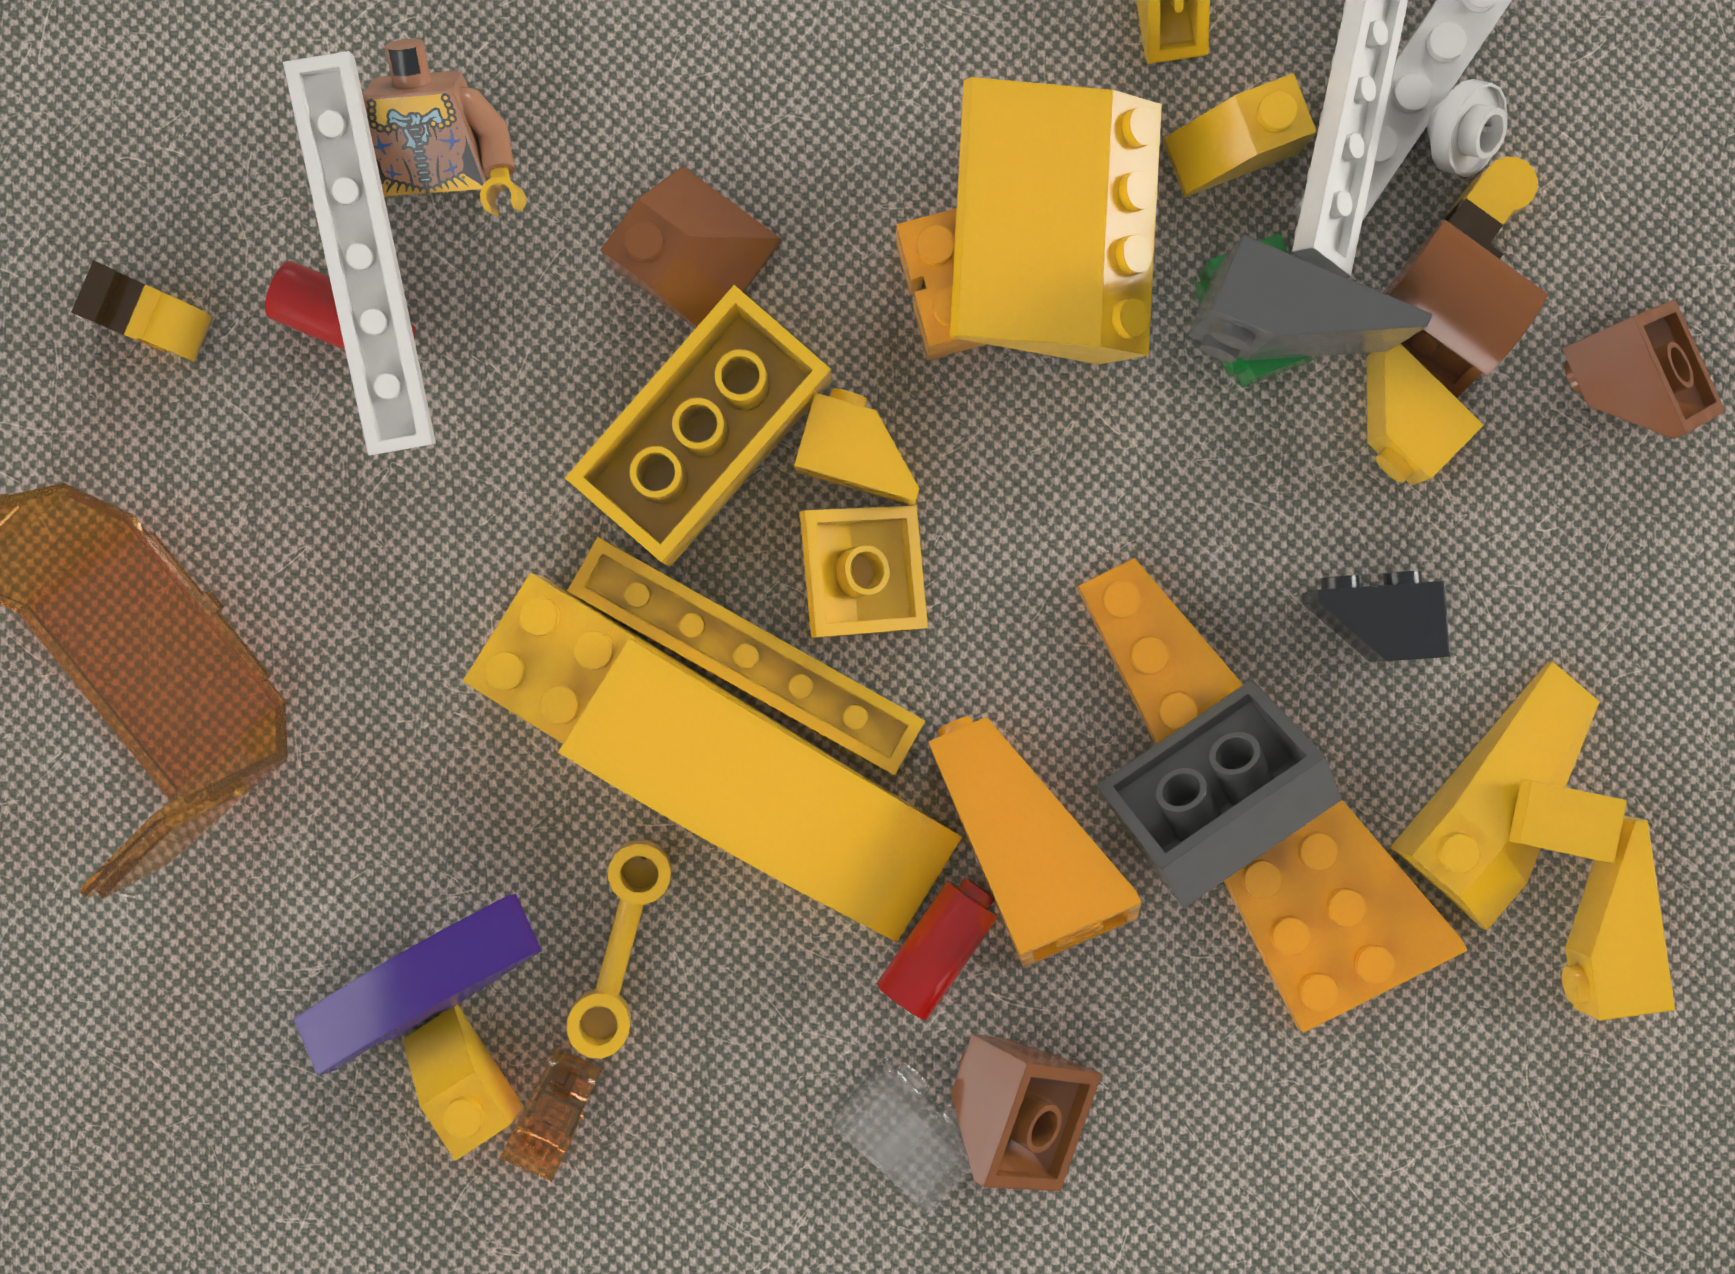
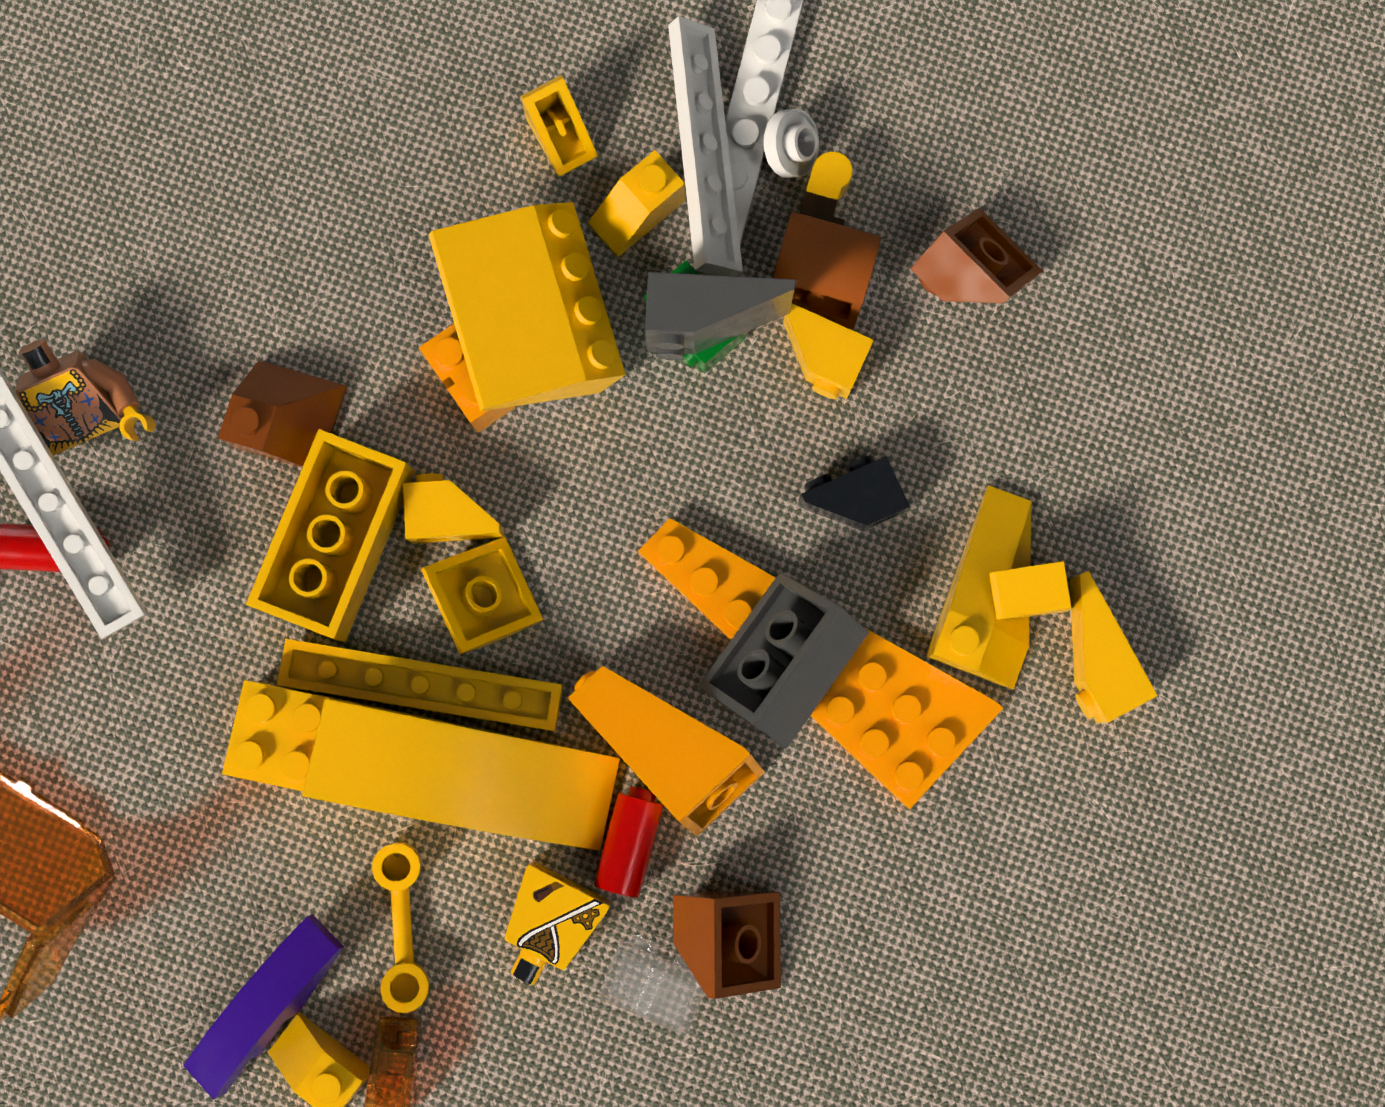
camera: 20 degrees left, 5 degrees down
(809, 1010) = (551, 921): none -> yellow torso

